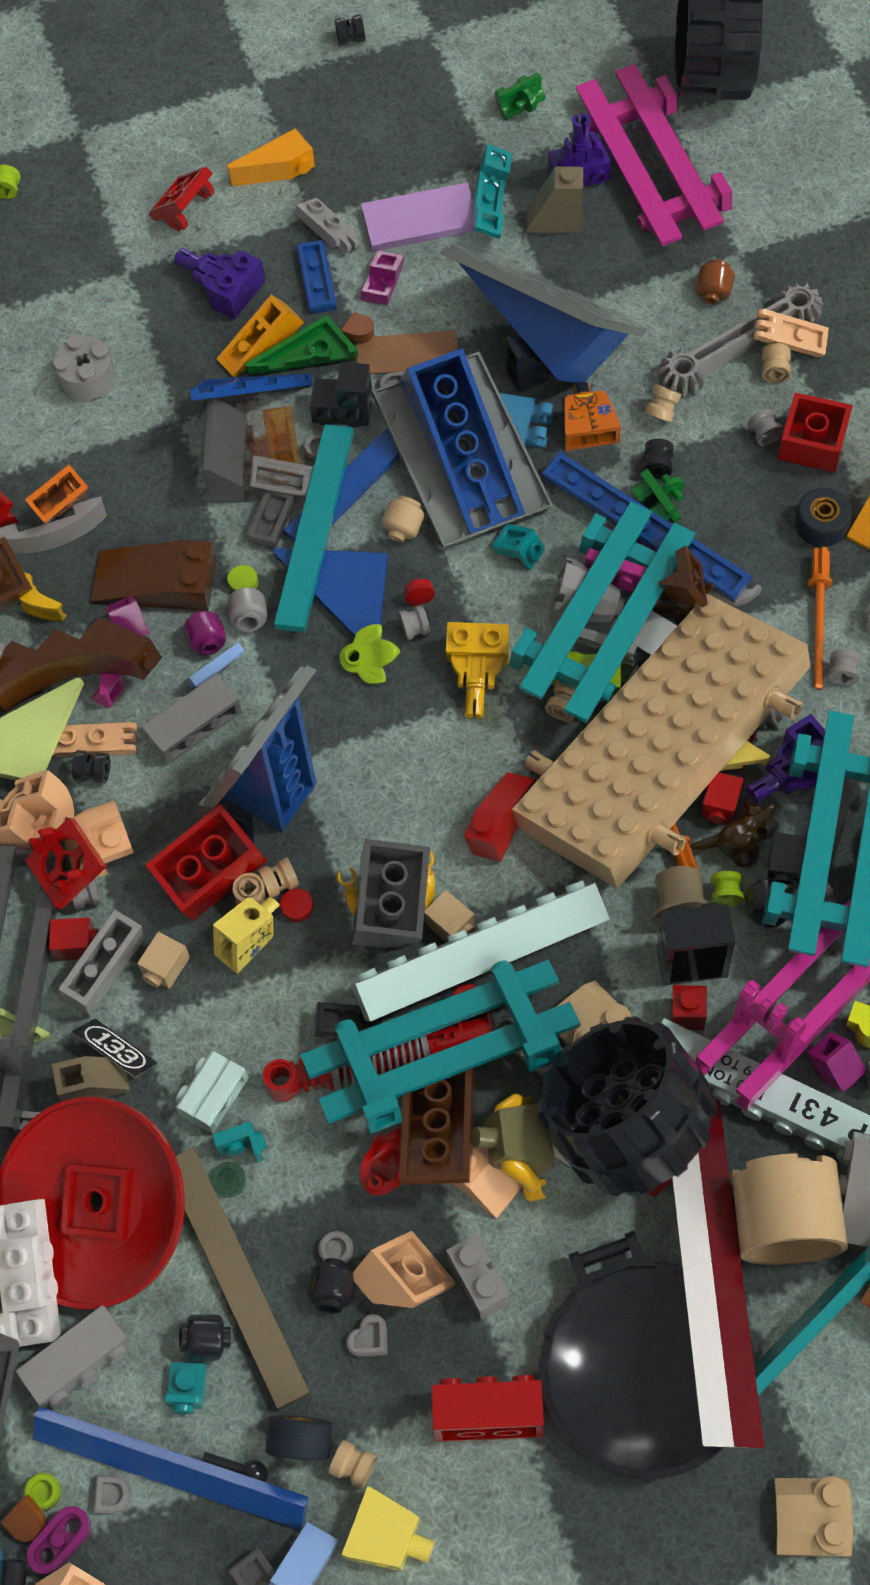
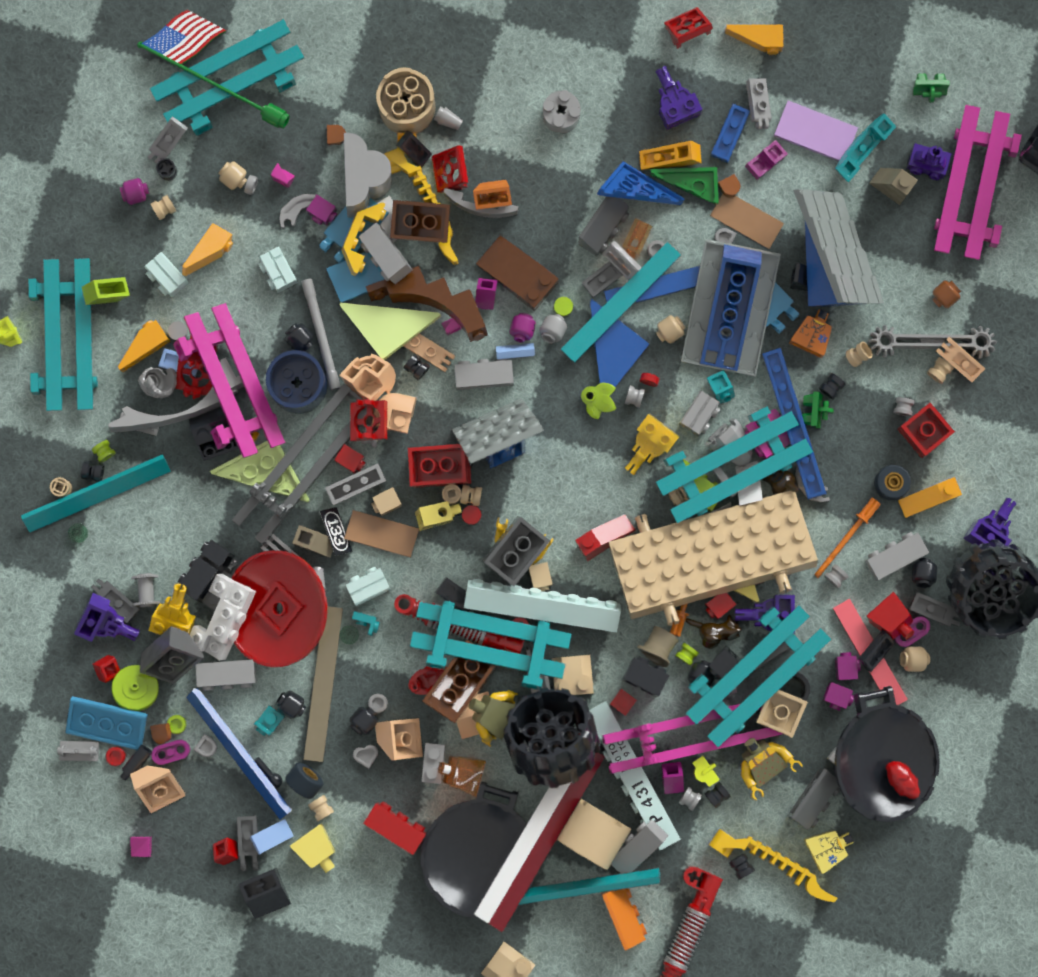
camera: 30 degrees right, 20 degrees up
(184, 1011) = (381, 533): none -> medium nougat piece
(343, 399) = (688, 231): black brick -> none
(514, 590) = (699, 414): none -> light grey brick
(533, 1261) = (463, 773): none -> clear orange torso
(687, 582) = (787, 480): reddish brown slope -> none

